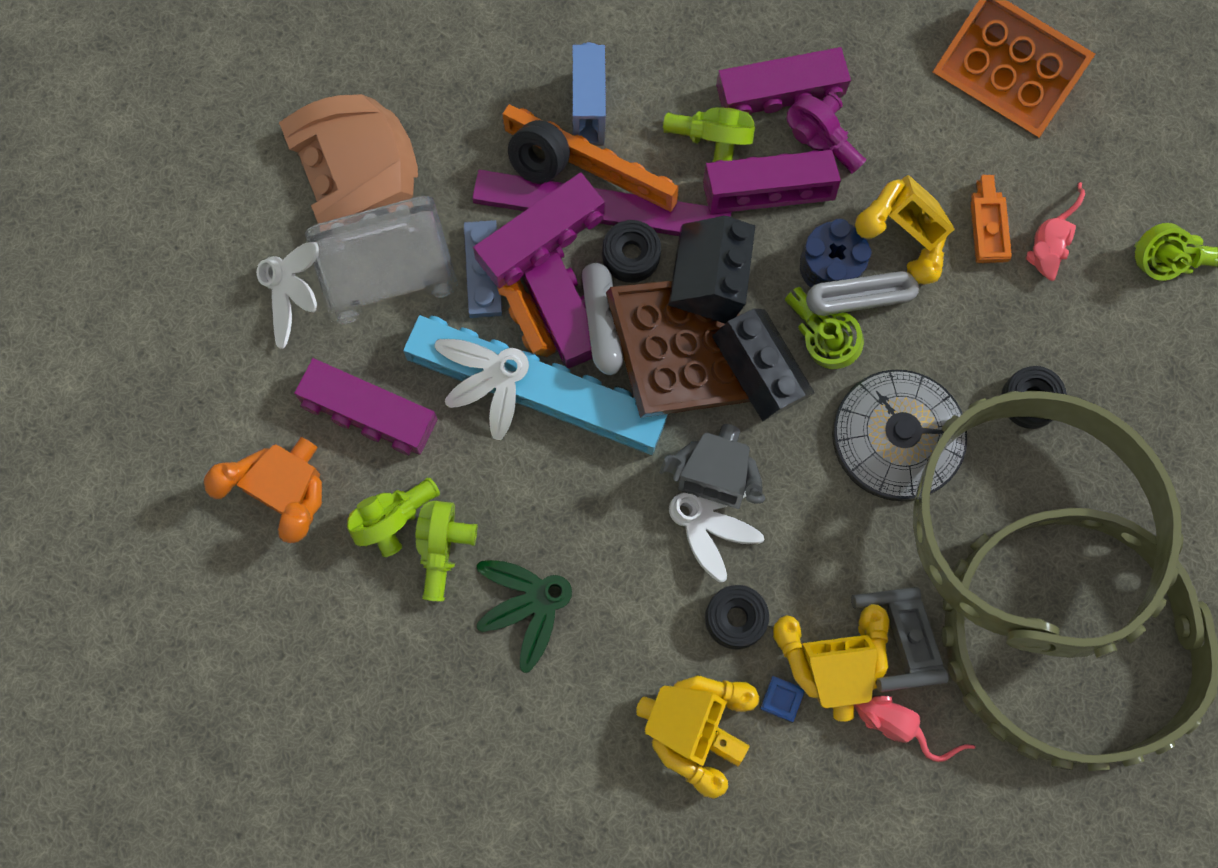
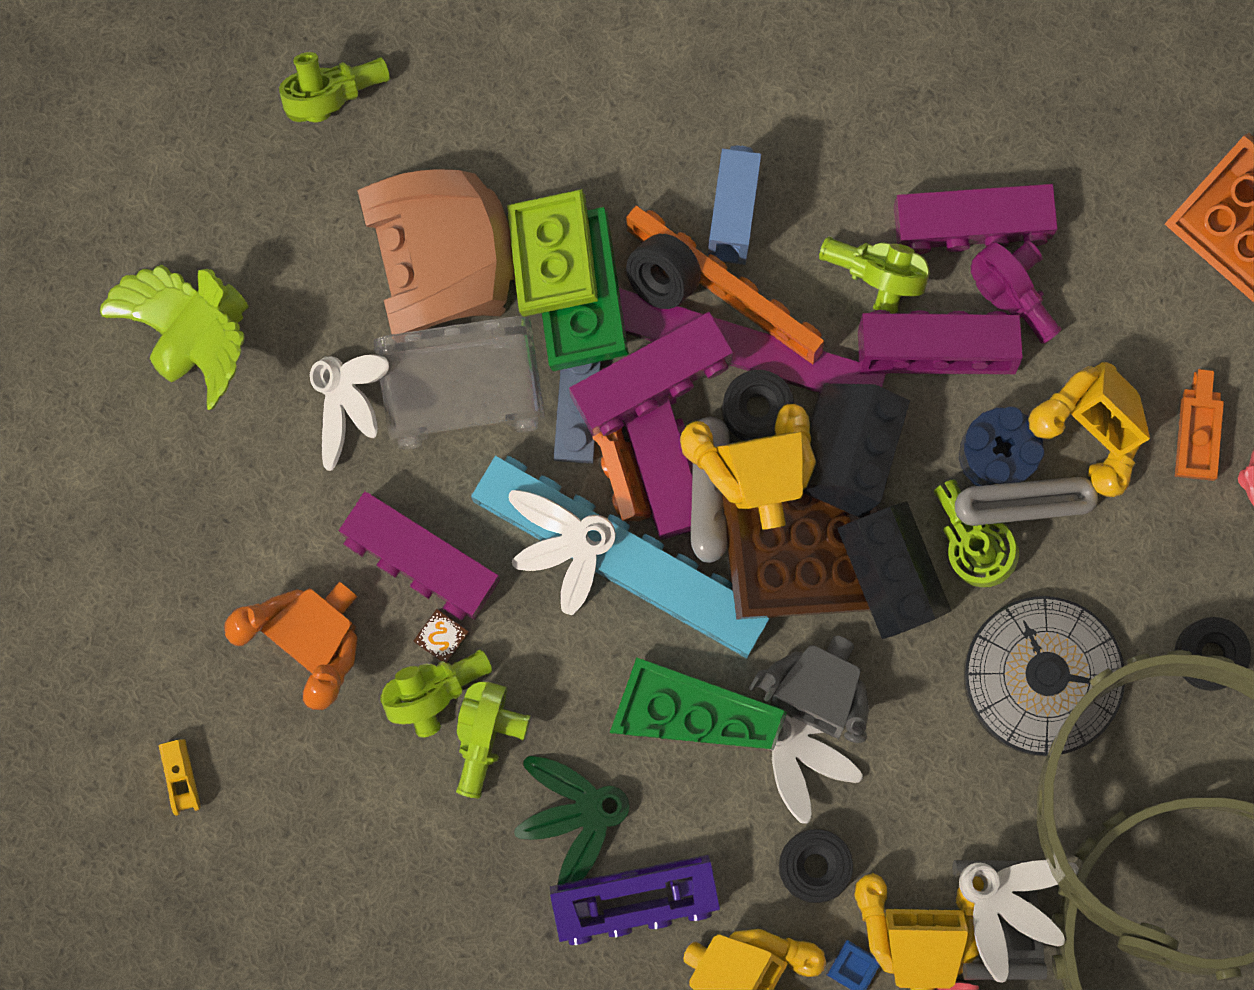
camera: 15 degrees right, 5 degrees up
(152, 244) = (194, 324): none -> lime animal
(180, 615) = (178, 770): none -> yellow bar
(238, 54) = (326, 88): none -> lime pin
(393, 471) = (441, 636): none -> tile
(445, 149) = (552, 253): none -> lime tile
(471, 176) = (593, 329): none -> green plate
(607, 677) = (621, 919): none -> dark purple brick
(608, 500) = (687, 709): none -> green wing
(638, 290) = (757, 470): none -> yellow torso
(896, 619) = (998, 899): none -> white plant

